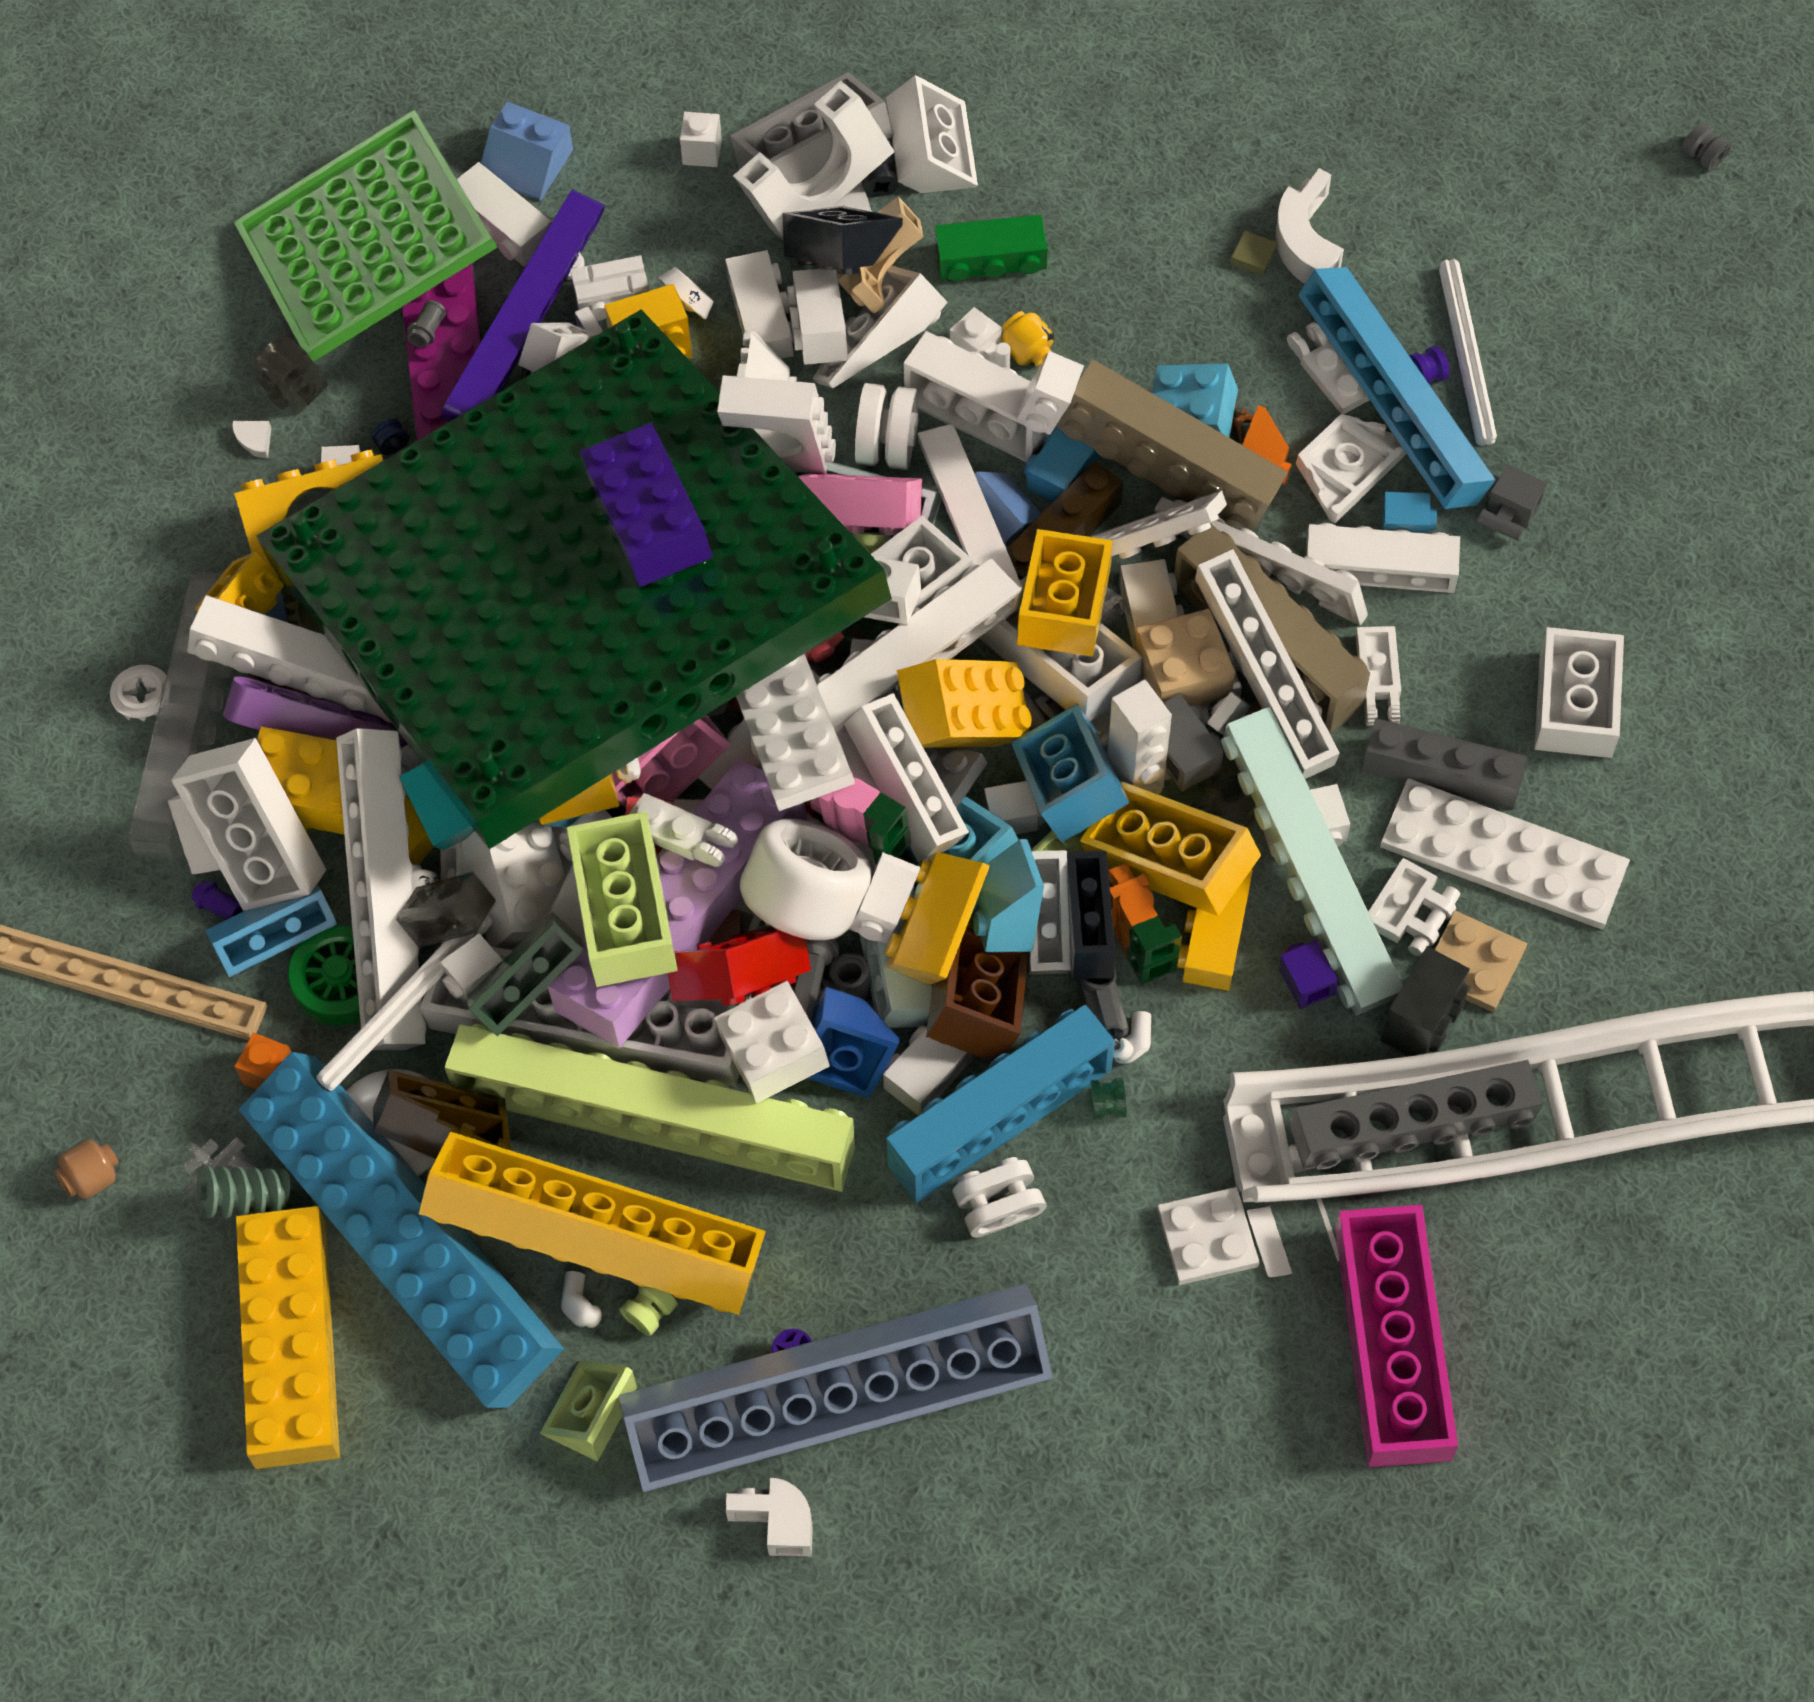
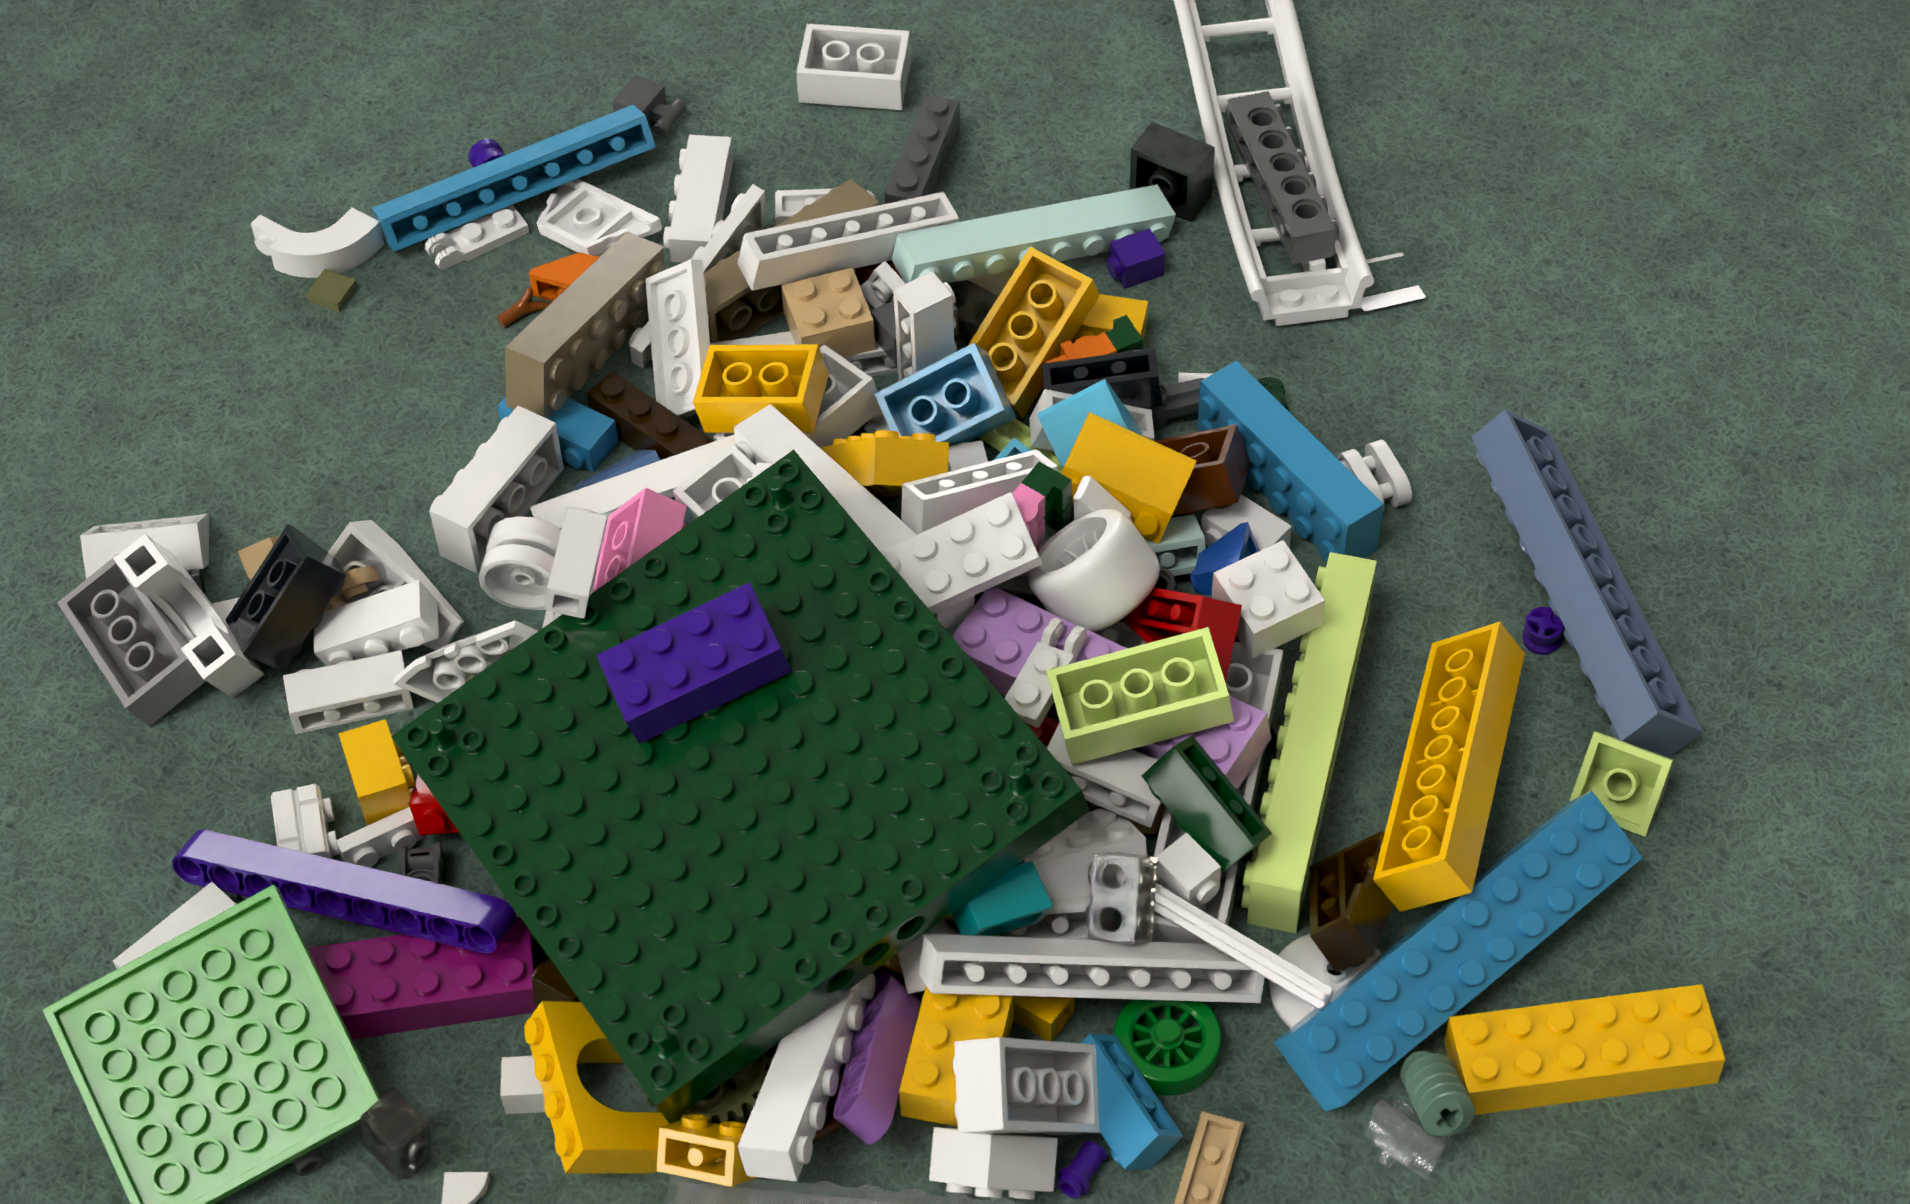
camera: 90 degrees left, 10 degrees down
(260, 1059) = (1281, 1096): orange brick -> none
(390, 436) = (481, 1040): dark blue bush -> none
(423, 329) = (368, 980): dark grey pin -> none
(526, 150) = (93, 923): medium blue slope -> none
(550, 341) = (405, 850): white slope -> none
(575, 1305) = (1514, 809): white arm -> none
(648, 1309) = (1519, 747): yellowish green wheel -> none
(690, 294) = (321, 753): white hat -> none
(700, 139) = (111, 751): white brick -> none
(783, 1509) = (1704, 629): white brick -> none
(981, 335) = (414, 495): white brick -> none
(991, 247) = (301, 487): green brick -> none
(1027, 338) = (418, 462): yellow head -> none
(1049, 393) = (539, 385): white brick -> none
(1201, 391) = (508, 312): medium azure brick -> none
(1208, 1236) = (1391, 337): white plate -> none
(1395, 1336) = (1479, 204): dark pink brick -> none
(1401, 900) = (1060, 184): white plate -> none
(1408, 512) = (656, 180): dark azure brick -> none
(1467, 353) = (464, 138): white axle -> none
(1486, 952) = (1105, 155): tan plate -> none
(1505, 853) = (1006, 133): white plate -> none

